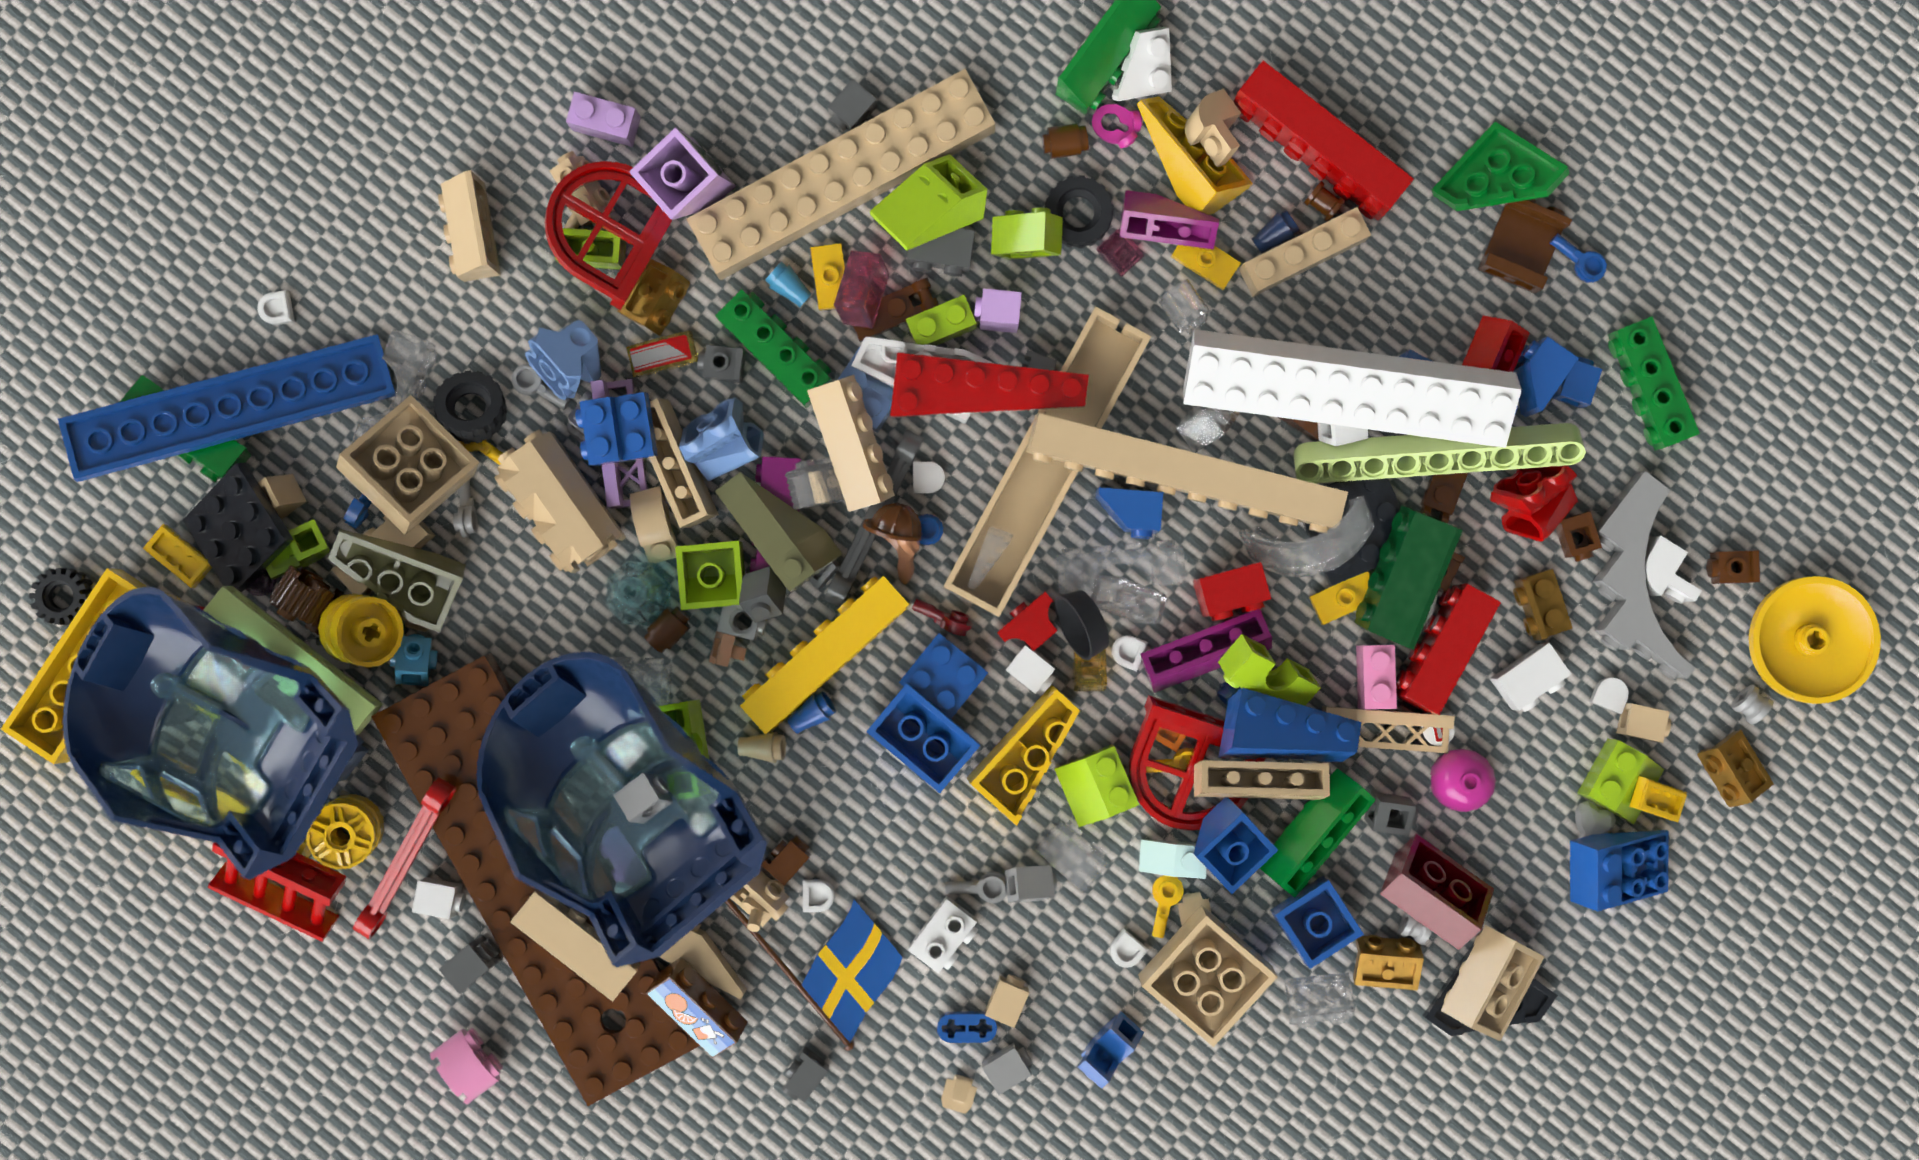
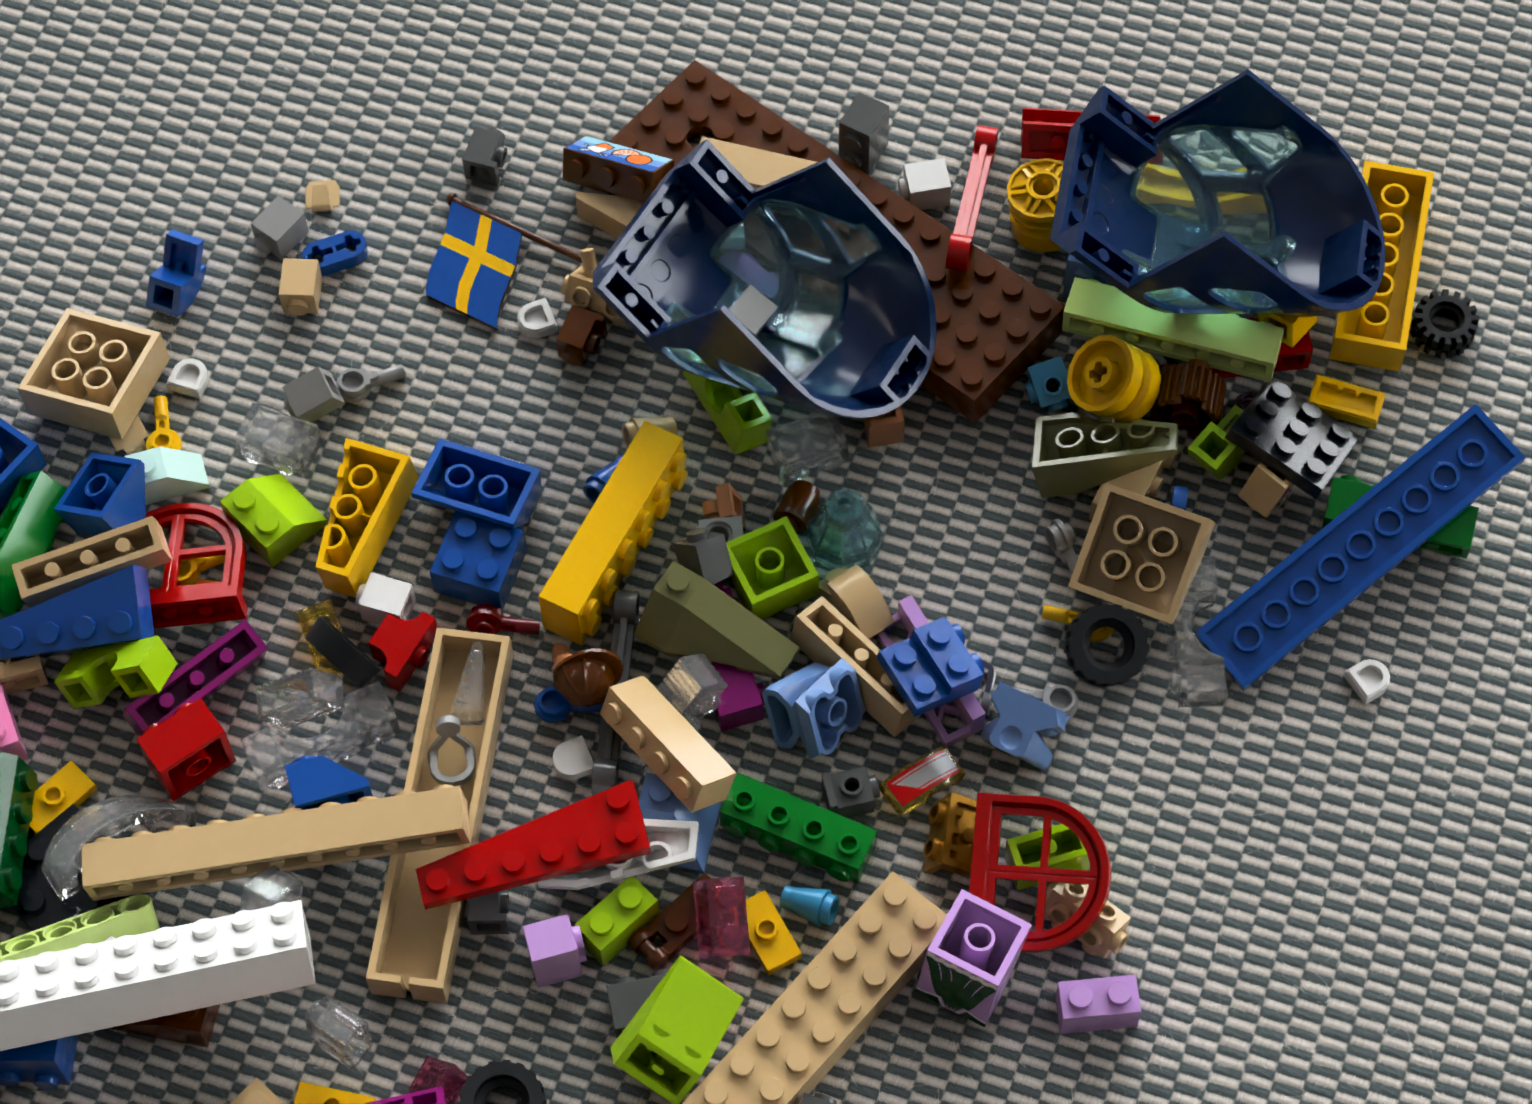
camera: 160 degrees right, 25 degrees down
(466, 1065) = (829, 49): bright pink brick -> none
(469, 227) = (1193, 829): tan slope -> none
(559, 501) = (968, 584): tan brick -> none
(943, 935) = (389, 323): white brick -> none
(1024, 522) = (447, 727): none -> light grey piece
(1026, 234) = (552, 1046): lime brick -> none
(1127, 651) = (283, 660): white tile -> none

